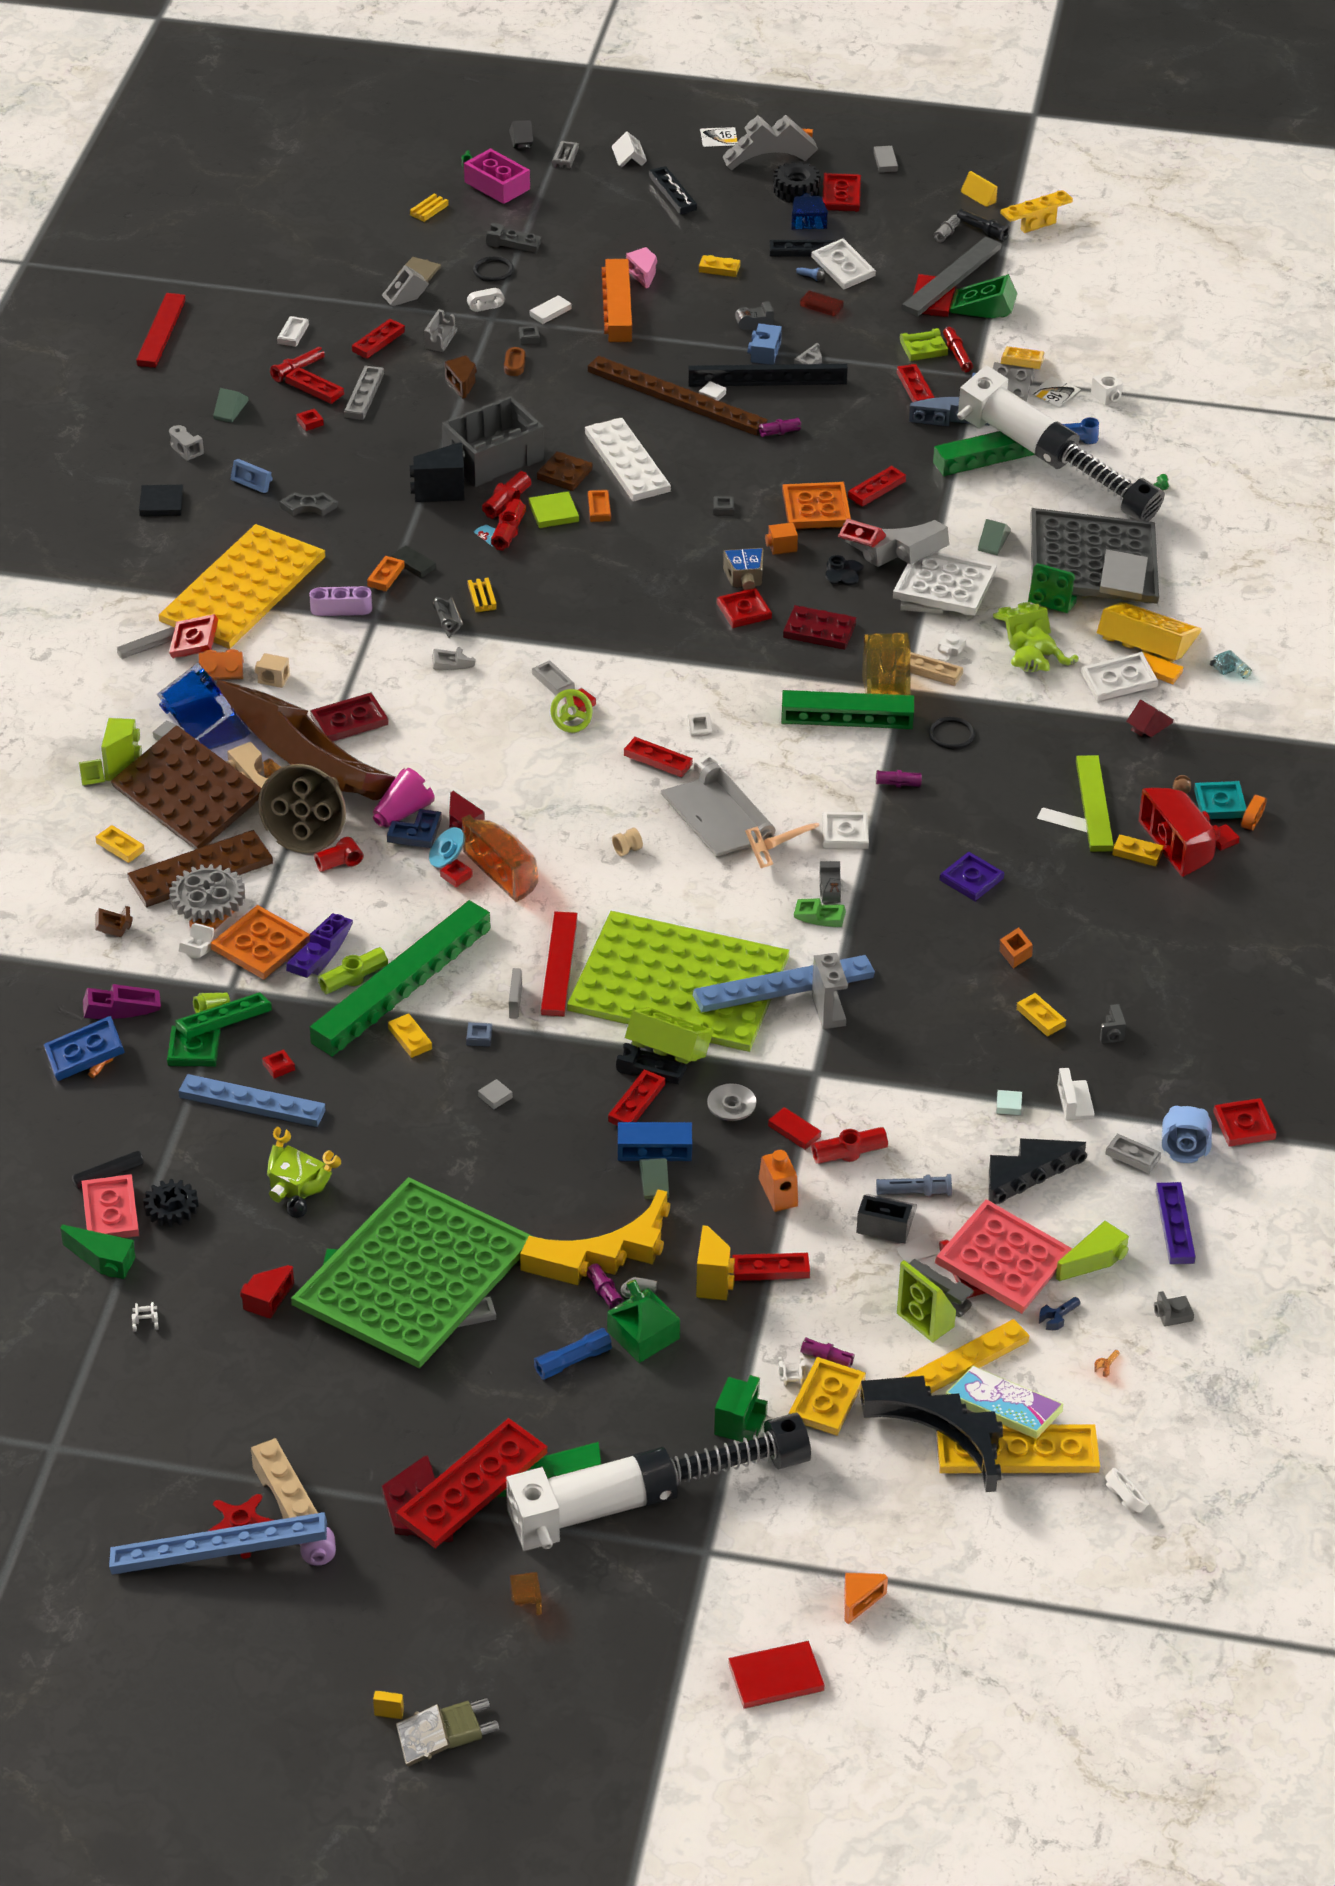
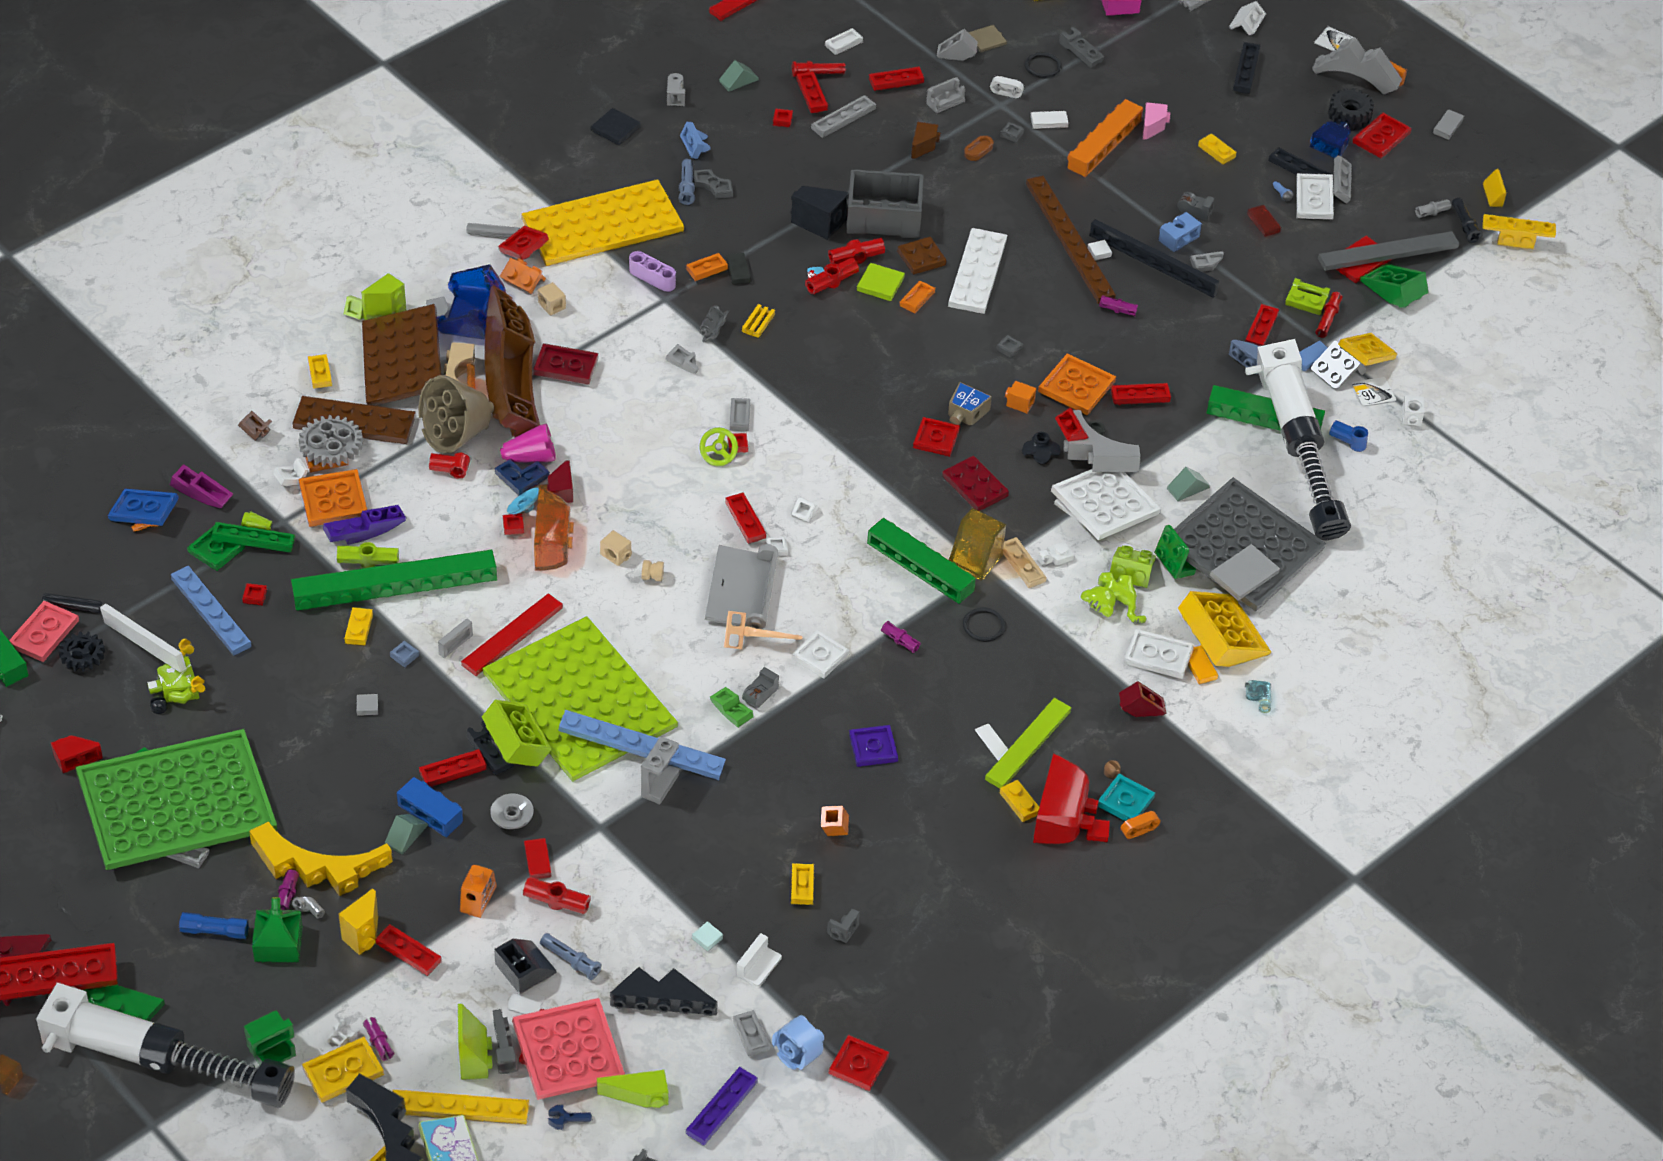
camera: 35 degrees right, 5 degrees up
(226, 1153) = (143, 637): none -> white tile
(271, 502) = (687, 187): none -> sand blue pin
(574, 841) = (615, 548): none -> tan brick
(851, 239) = (1342, 179): none -> light grey tile
(1162, 482) = (1373, 515): green hand -> none

